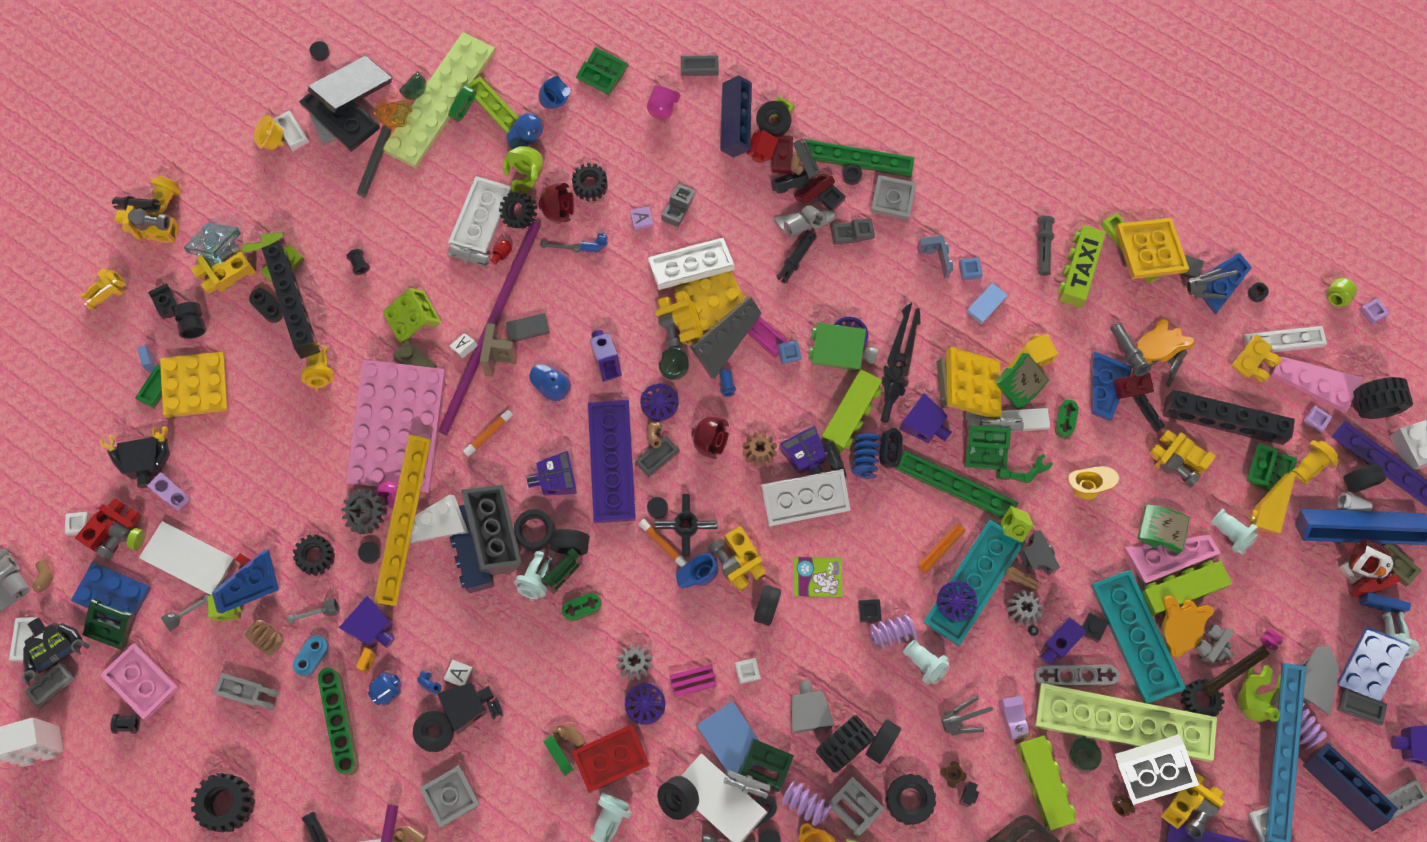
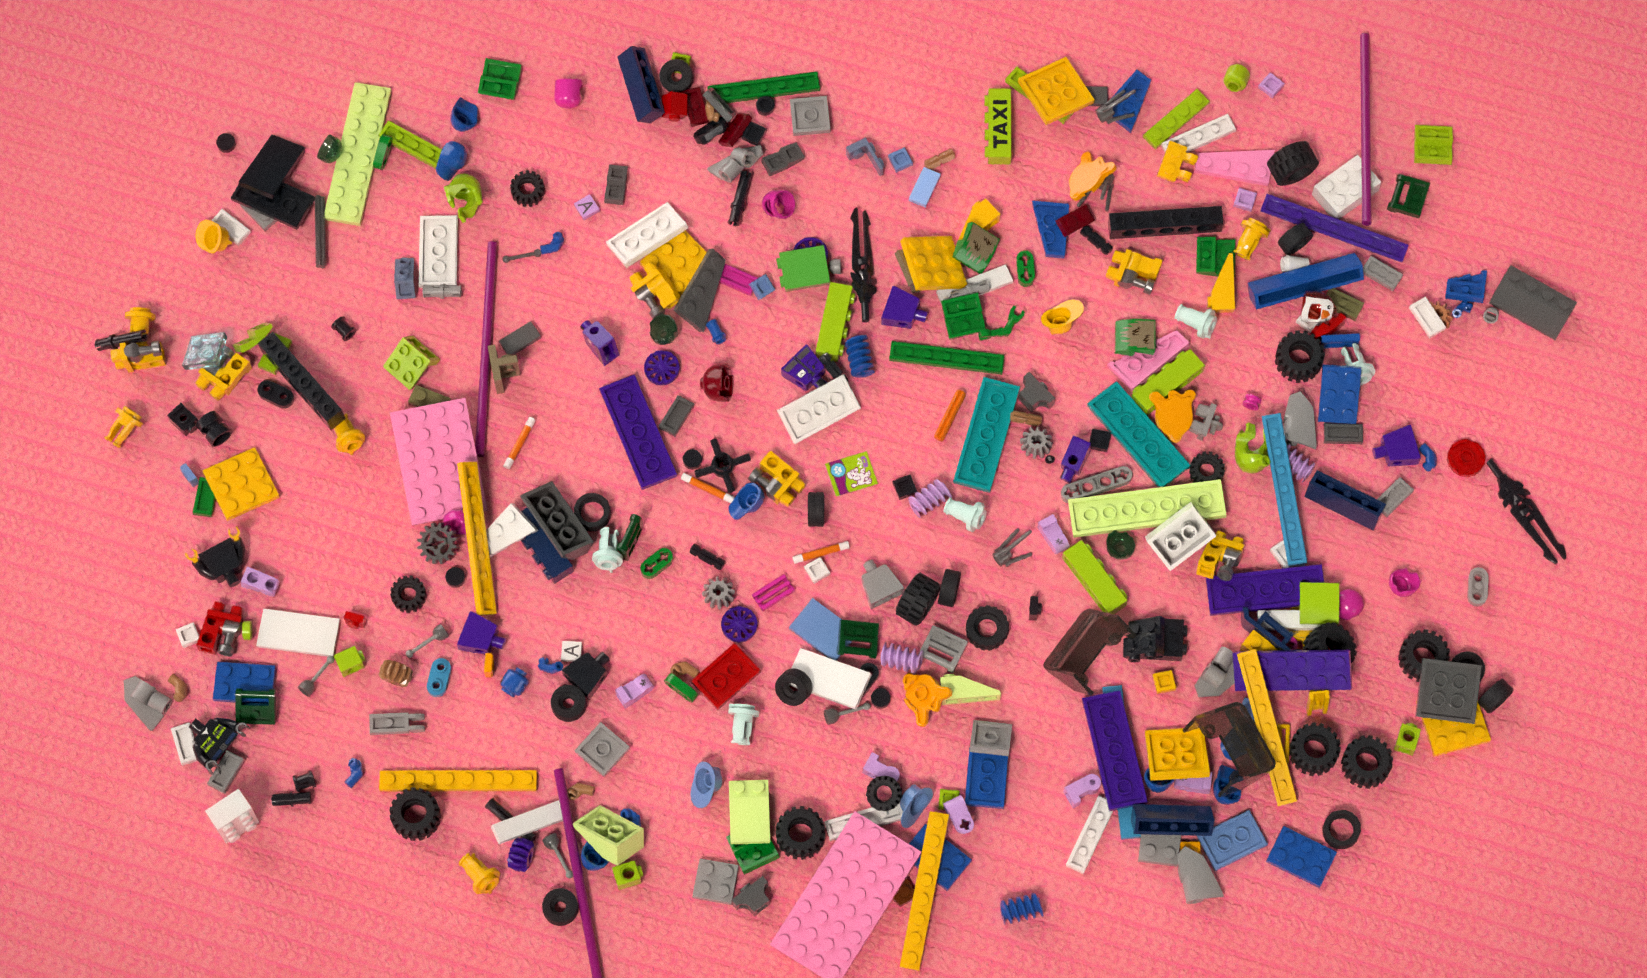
camera: 15 degrees left, 0 degrees up
(105, 738) = (291, 799): none -> black axle
(139, 681) = (301, 744): bright pink plate -> none
(184, 731) = (356, 772): none -> blue arm
(247, 584) = (364, 633): blue wing -> none
(286, 778) = (458, 780): none -> yellow plate
(345, 729) = (486, 729): green beam -> none
(393, 113) = (323, 182): clear yellow piece -> none
(434, 231) = (404, 278): none -> sand blue bracket
(463, 345) = (468, 373): white tile -> none
(495, 708) = (614, 668): black bush -> none
(501, 251) = (470, 277): red cylinder -> none
(507, 741) = (634, 690): none -> lavender leg
(527, 210) = (477, 225): black tyre -> none
(541, 378) = (550, 380): blue cap -> none
(554, 475) = (593, 460): dark purple torso -> none
(557, 203) = (505, 218): dark red cylinder -> none
(565, 539) = (622, 510): black tyre -> none
(636, 617) = (707, 556): none -> black axle
(652, 438) = (665, 399): medium nougat arm -> none
(699, 66) = (589, 45): dark grey tile -> none
(747, 784) = (846, 657): light grey pin -> none
(753, 455) = (770, 386): medium nougat gear -> none
(757, 652) = (820, 552): none -> orange bar
(839, 267) = (777, 196): none -> dark pink helmet
(891, 451) = (879, 345): black plate -> none
(957, 601) = (976, 454): dark purple wheel -> none
(959, 774) = (1016, 591): reddish brown plate -> none
(1015, 280) = (943, 157): none -> medium nougat piece
(1016, 524) = (1007, 373): lime brick -> none
(1045, 237) = (958, 109): dark grey pin -> none
(1123, 805) = (1164, 576): reddish brown plate -> none
(1133, 355) = (1067, 194): dark grey pin -> none
(1235, 671) = (1228, 435): dark brown axle -> none
(1255, 297) = (1164, 94): black bush -> none
(1266, 315) = (1176, 119): none -> lime plate
(1350, 597) = (1302, 342): none -> black tyre

